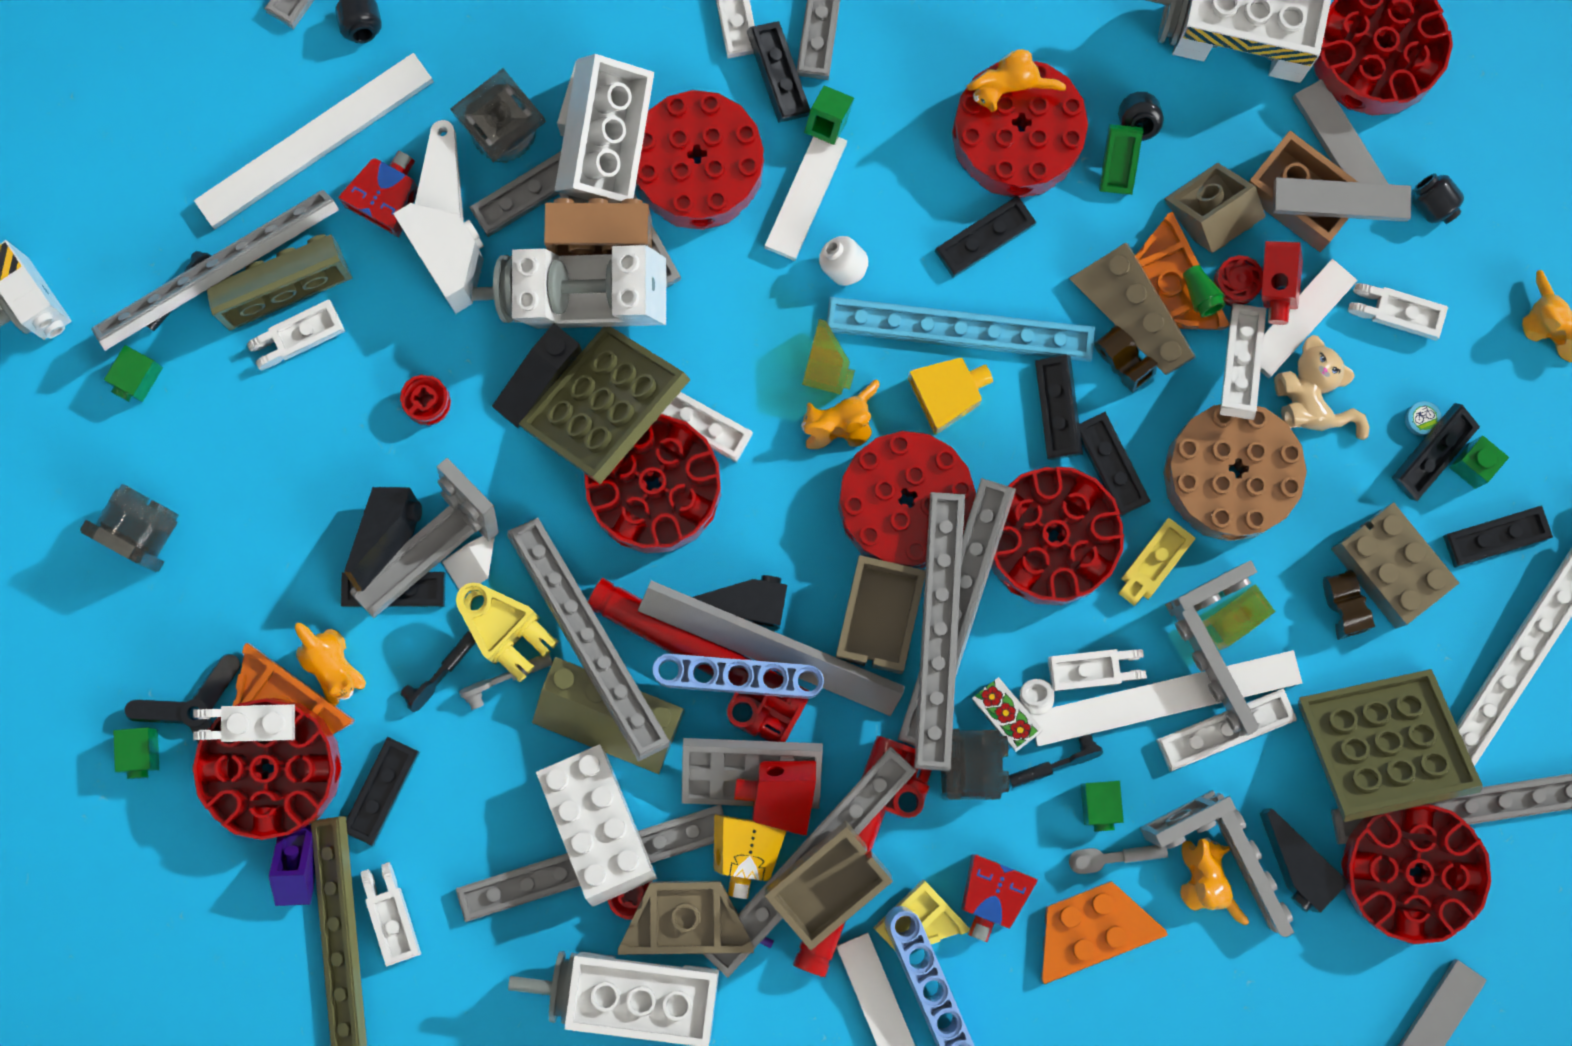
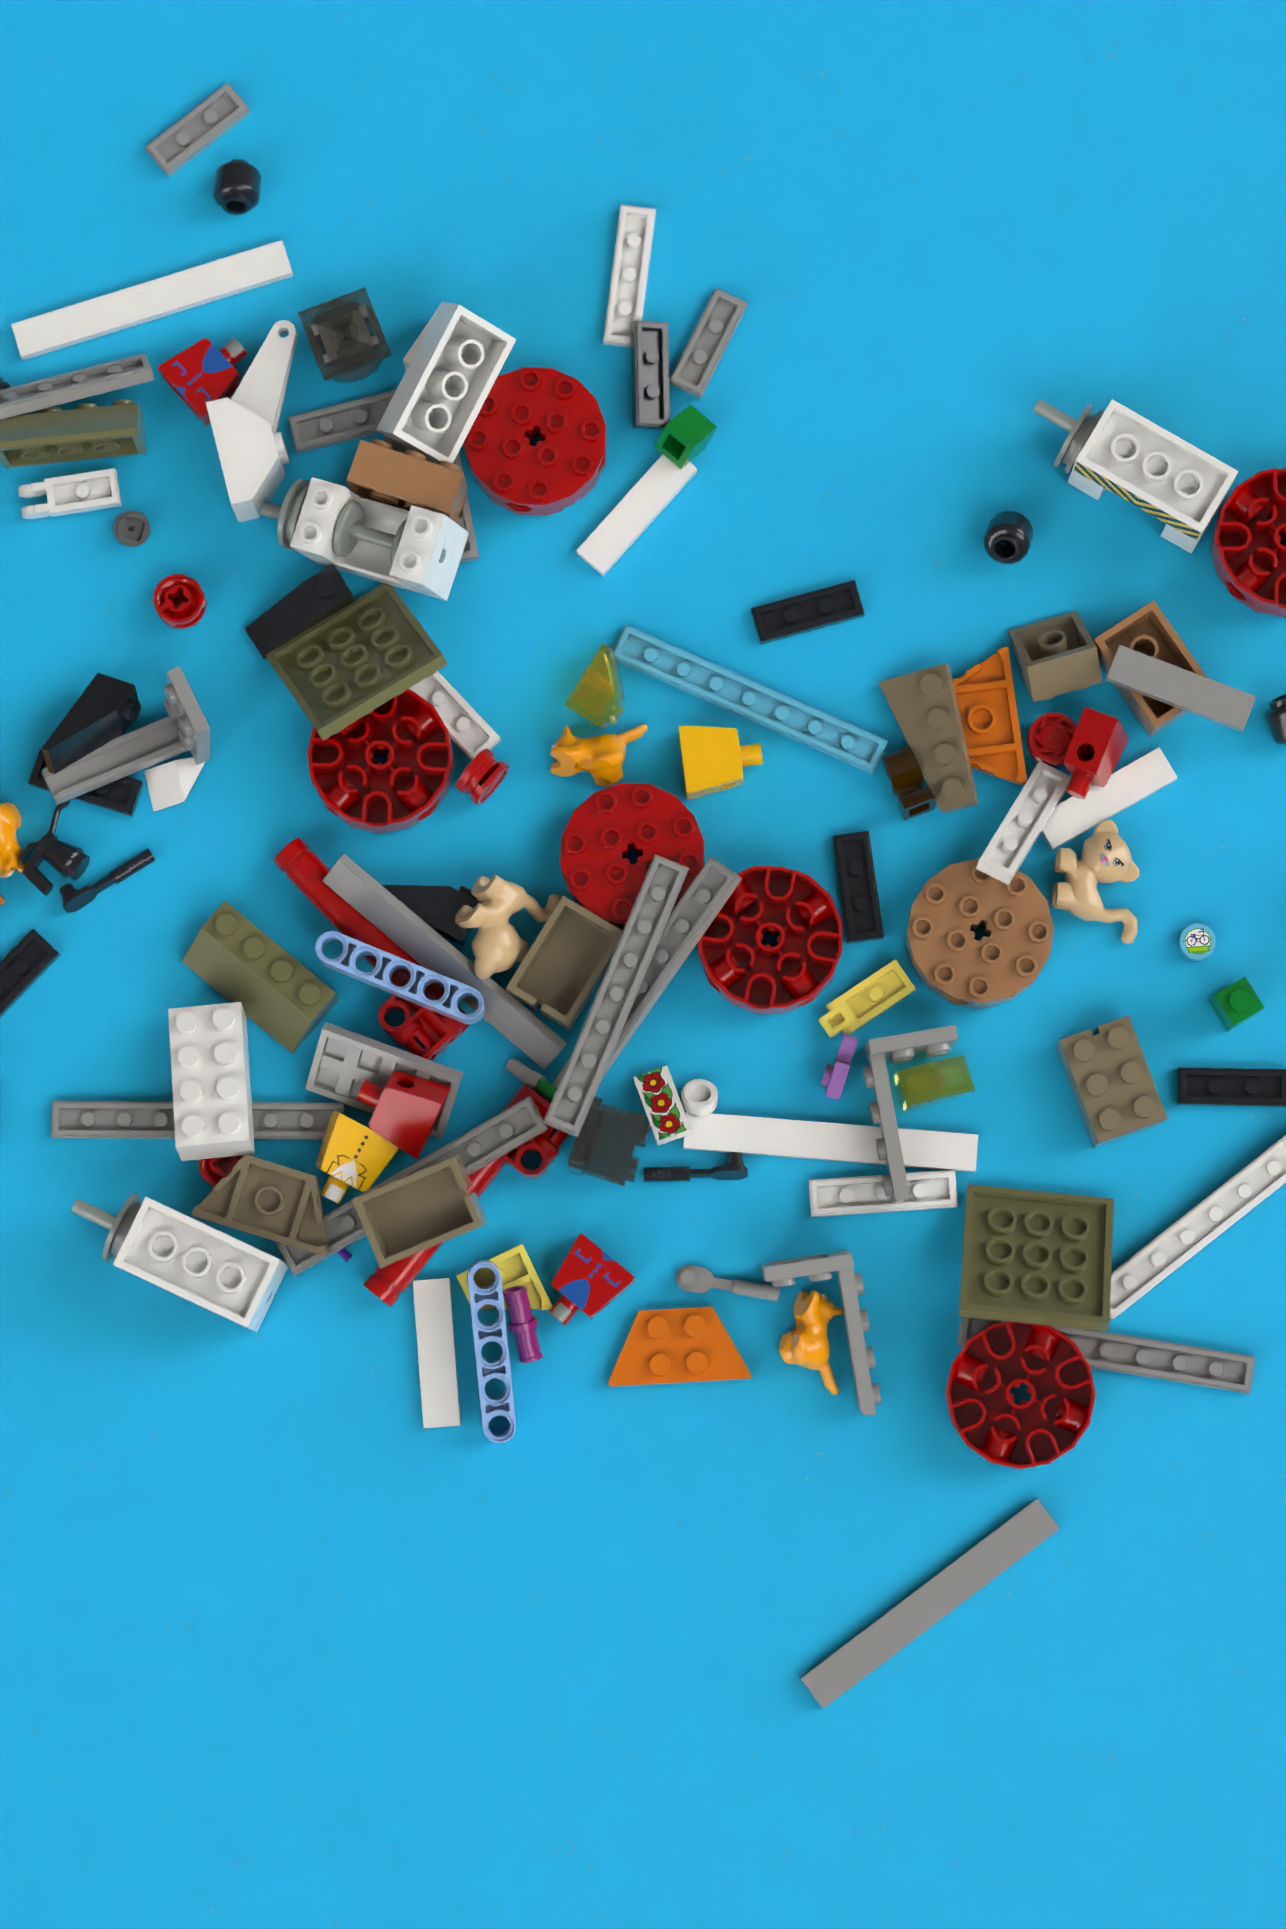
camera: 25 degrees right, 0 degrees up
(360, 348) = (131, 528): none -> dark grey tile
(395, 663) = (62, 856): none -> black piece
(473, 692) = (132, 912): light grey piece -> none
(500, 625) = (180, 853): light yellow piece -> none
(588, 639) = (263, 893): light grey tile -> none
(745, 470) = (482, 776): none -> red wheel
(812, 615) = (497, 942): none -> tan animal
(843, 260) = (650, 591): white head -> none
(885, 729) = (531, 1078): none -> light grey piece
(949, 953) = (523, 1324): none -> magenta pin
(1014, 73) = (883, 454): light orange animal -> none
(1018, 161) = (904, 535): red brick -> none
(1059, 407) = (822, 811): black tile -> none
(1092, 669) = (766, 1088): white hinge -> none
(1102, 804) = (727, 1226): green brick -> none
(1120, 159) = (971, 575): green tile -> none
(1153, 636) = (836, 1074): none -> medium lavender plate
(1204, 293) = (1008, 740): green cone -> none
(1302, 867) = (911, 1357): black slope -> none
(1337, 133) = (1211, 622): light grey tile -> none
(1345, 597) = (1050, 1104): dark brown leg -> none
(1400, 311) = (1212, 823): white hinge -> none
(1435, 452) = (1197, 979): black tile -> none

